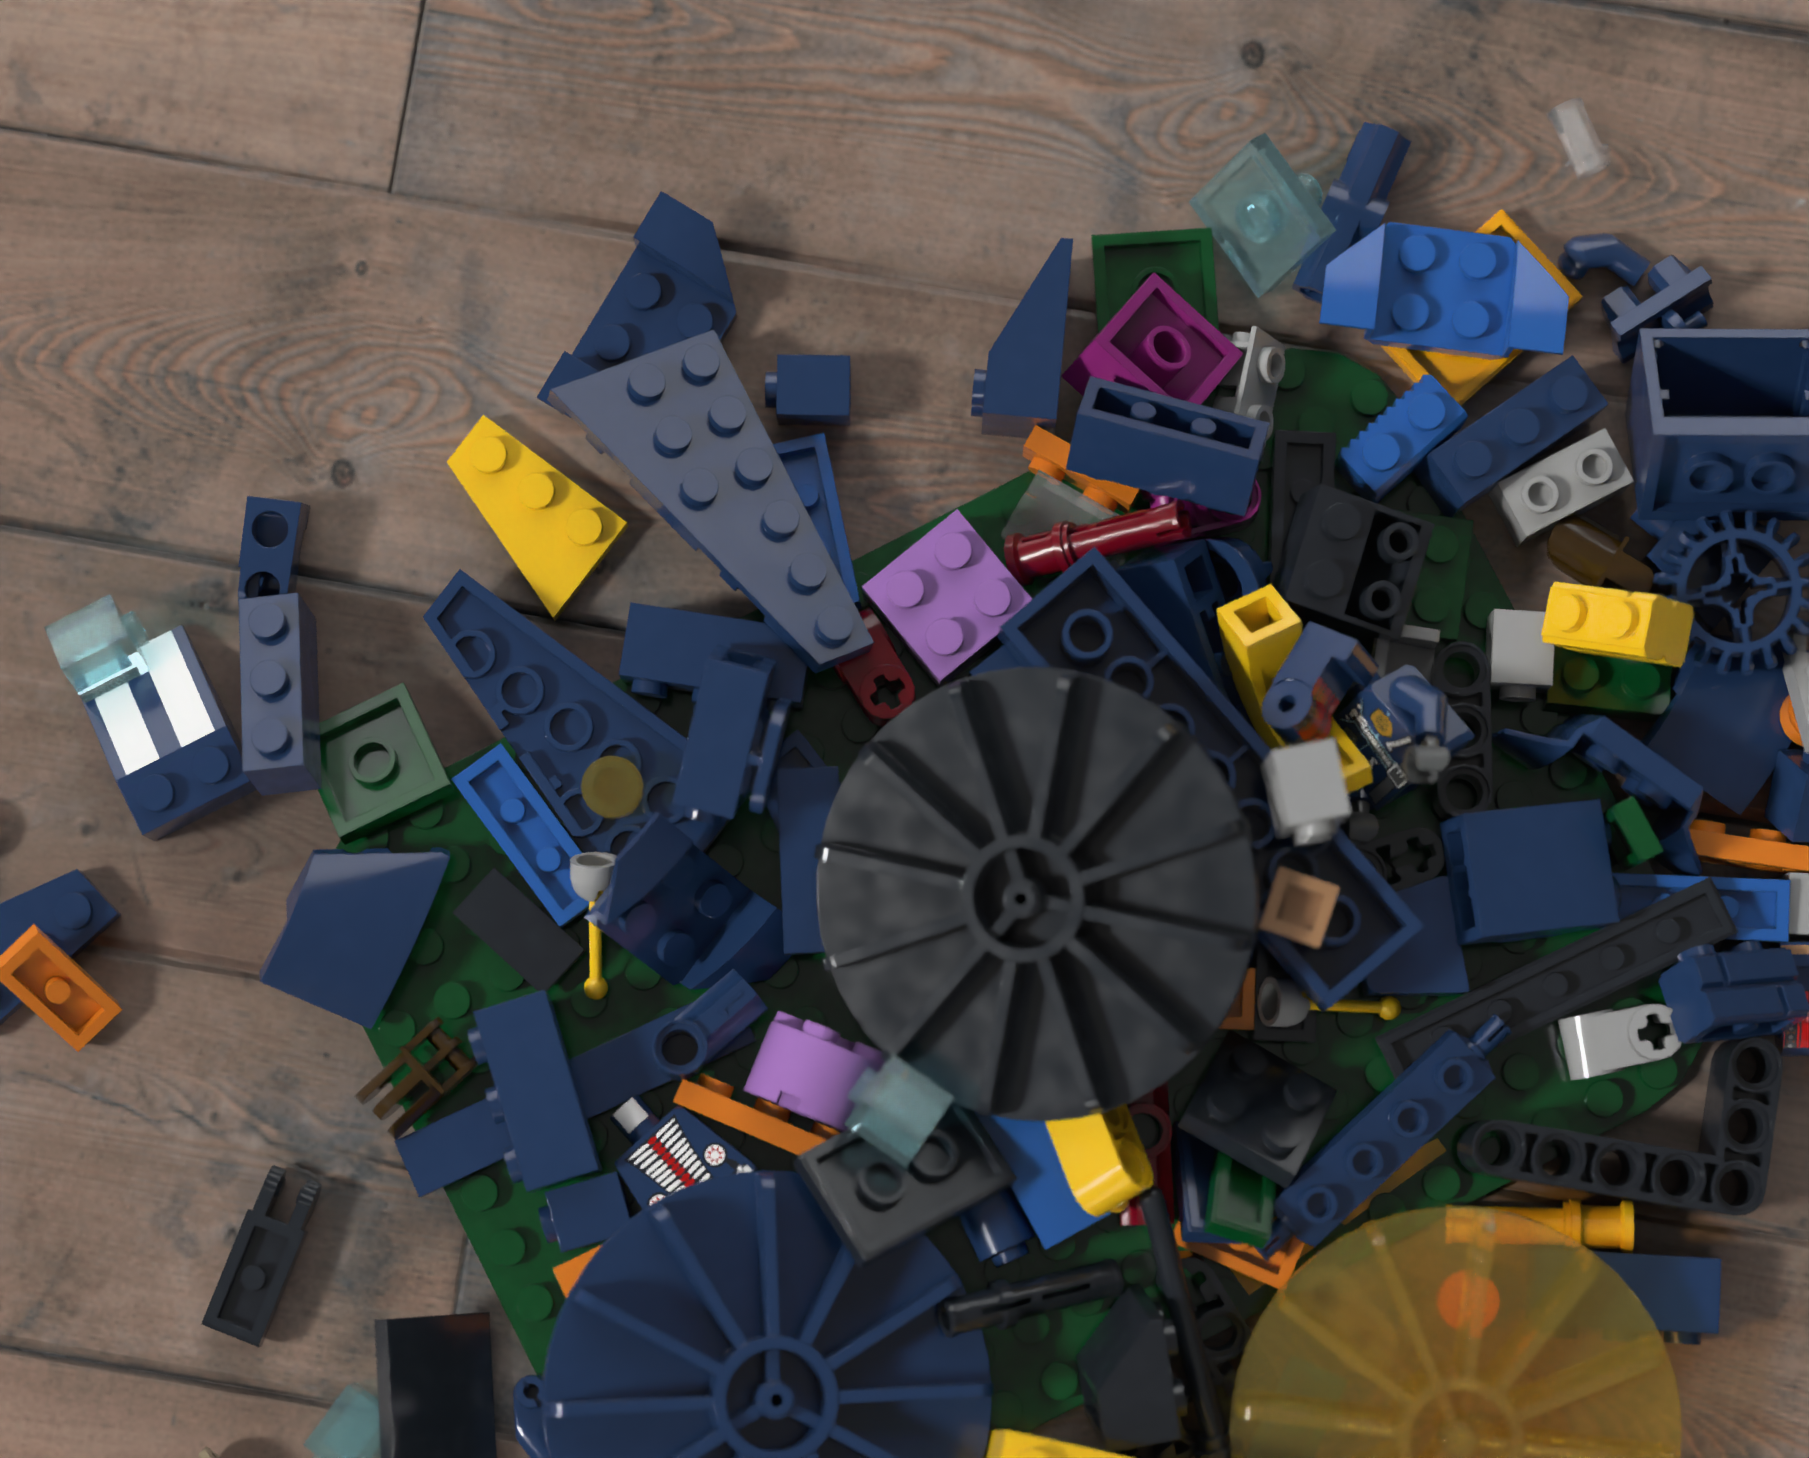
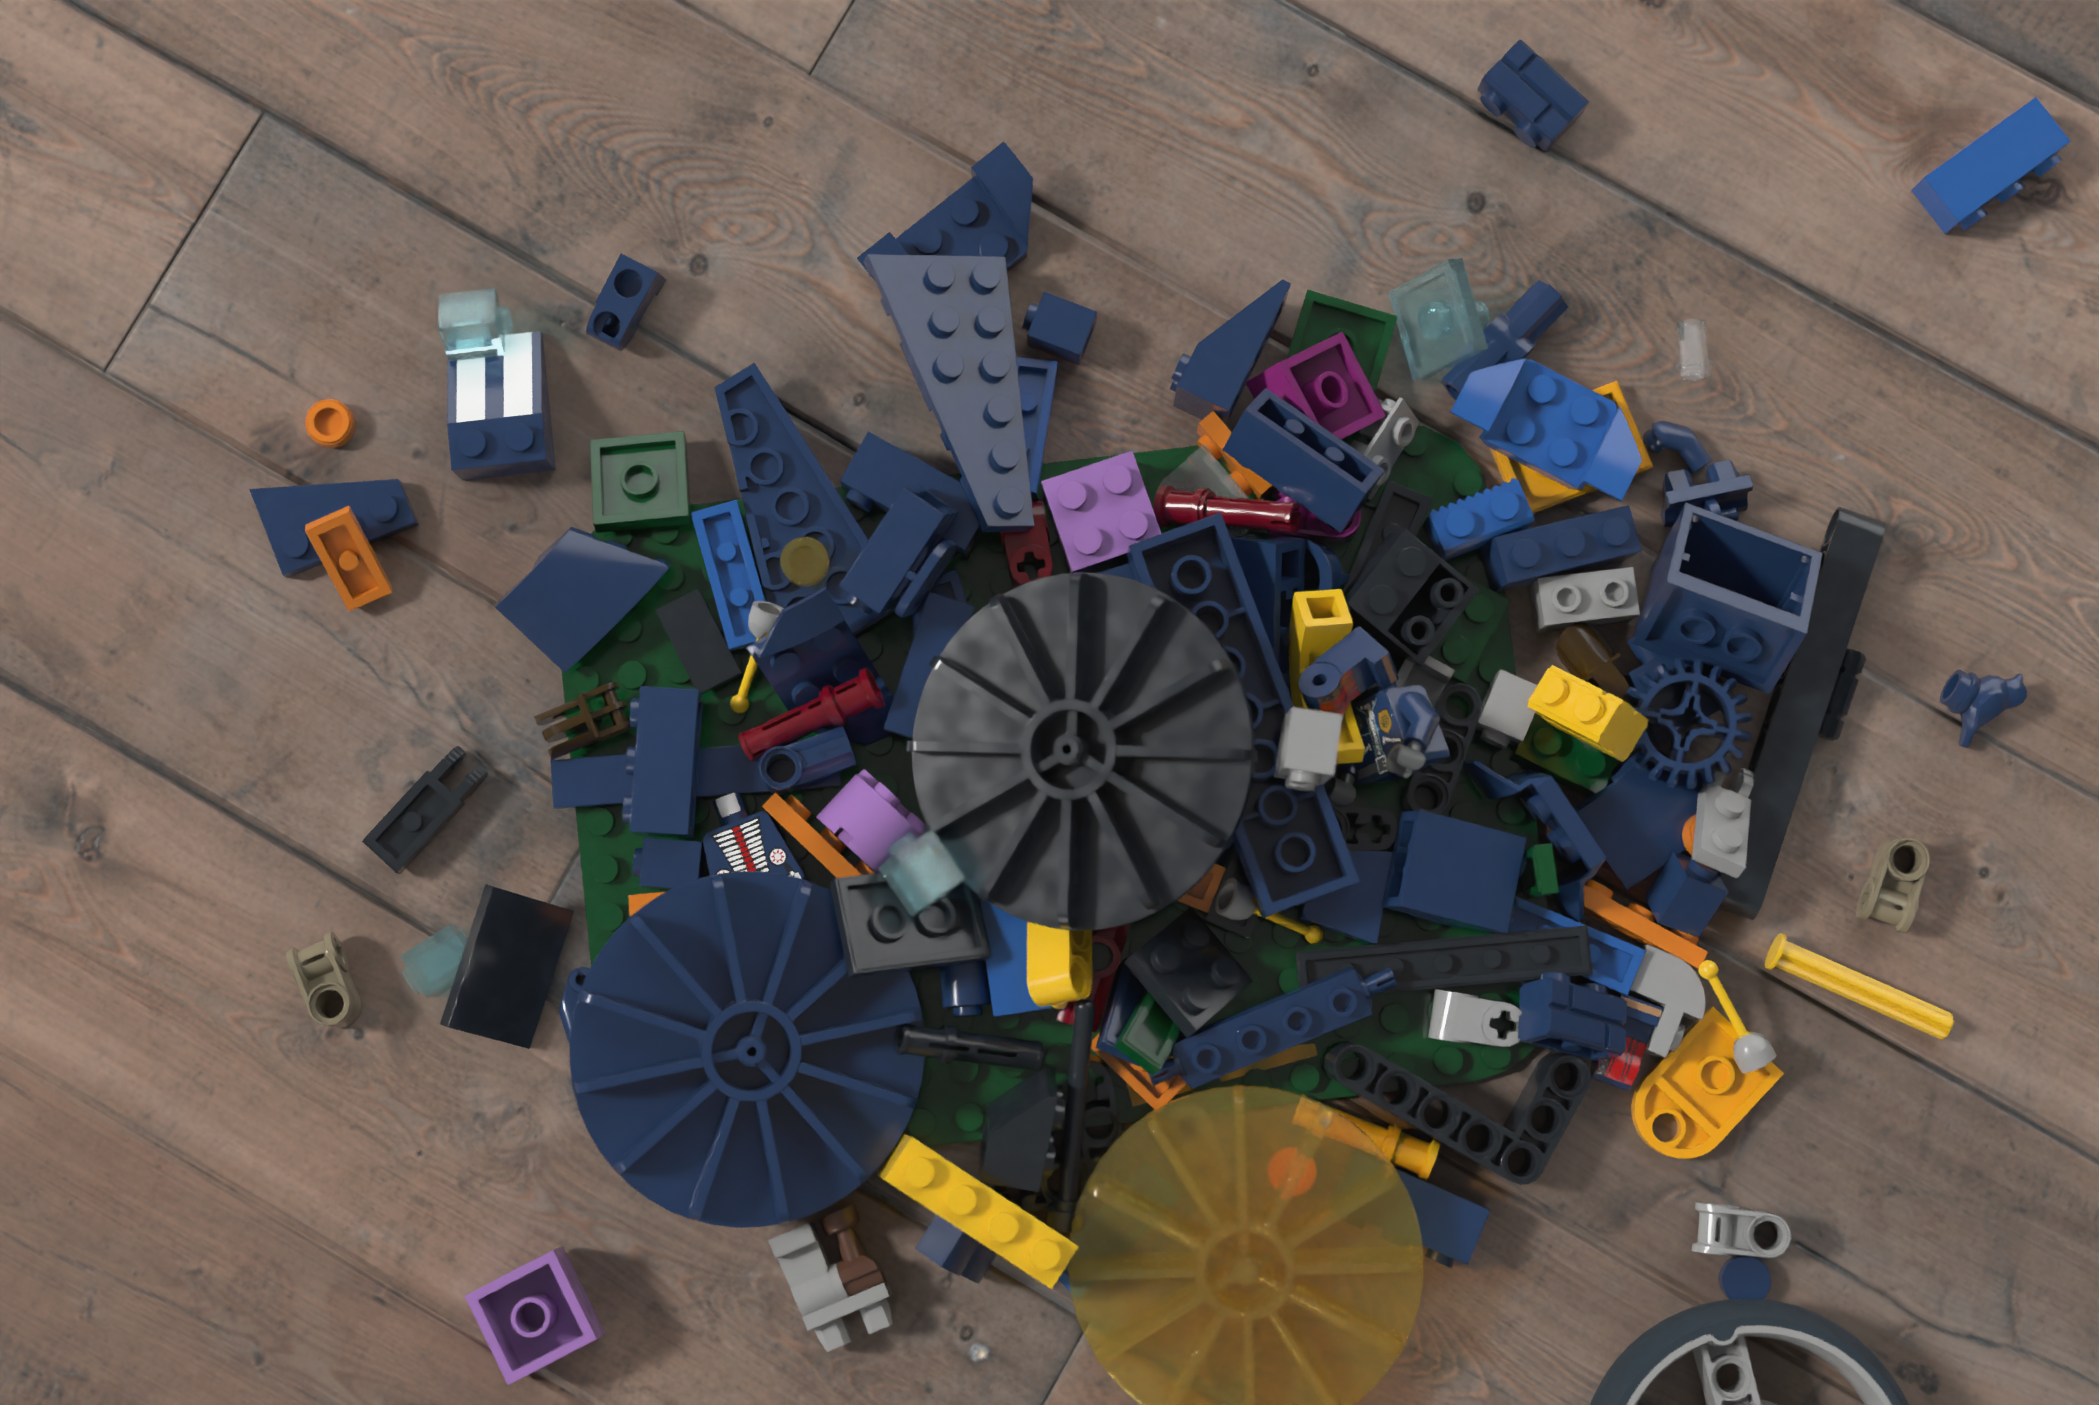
camera: 20 degrees right, 0 degrees up
(279, 694) = (589, 405): dark blue brick -> none
(537, 513) = (827, 344): yellow wing -> none
(712, 951) = (831, 707): none -> dark red pin
(1298, 907) = (1271, 832): medium nougat plate -> none

